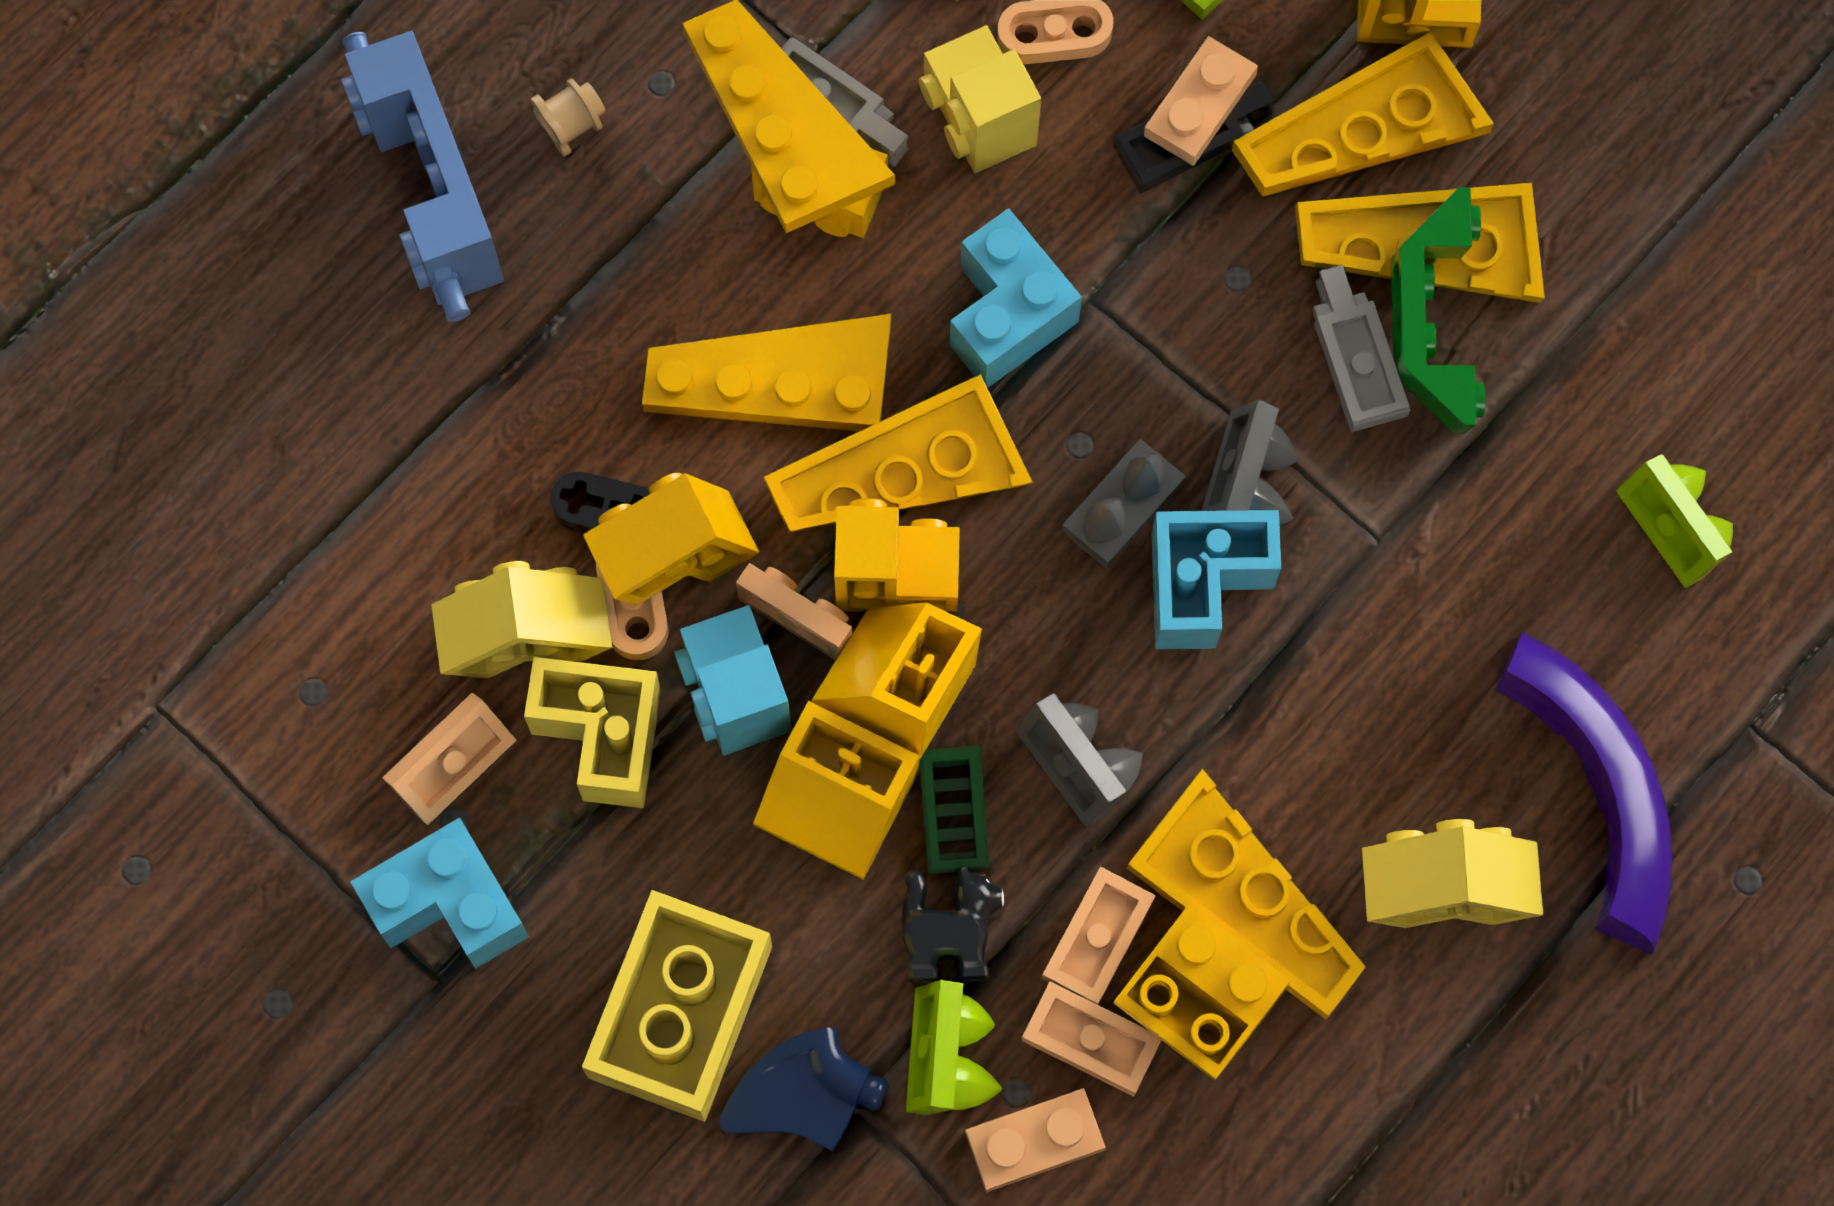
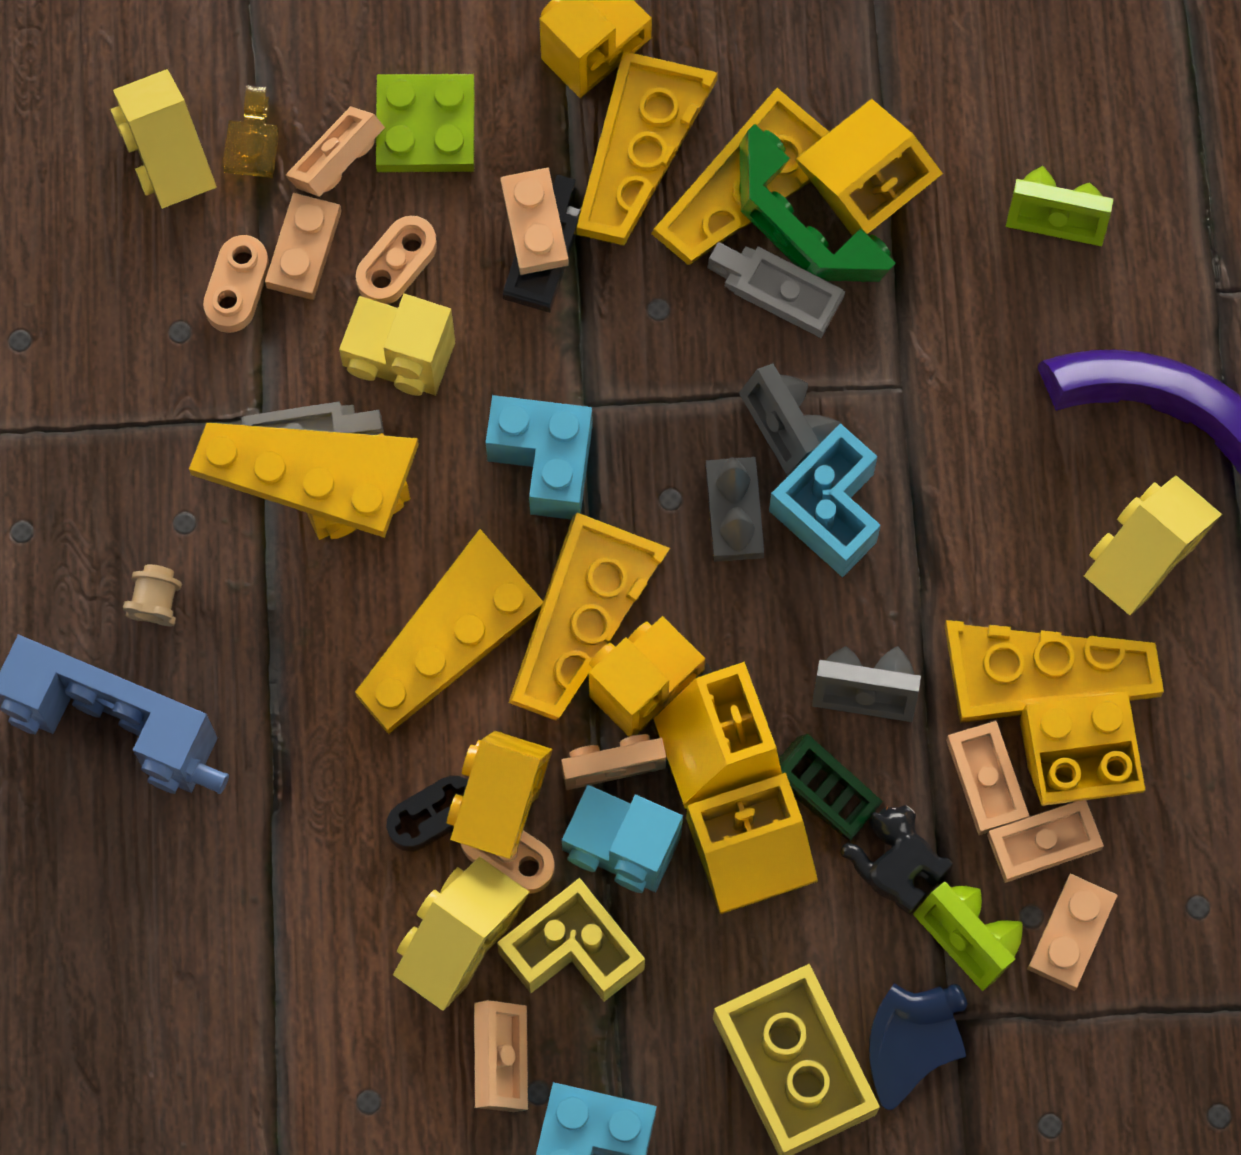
camera: 45 degrees left, 0 degrees up
(1539, 321) = (868, 167): none -> yellow slope

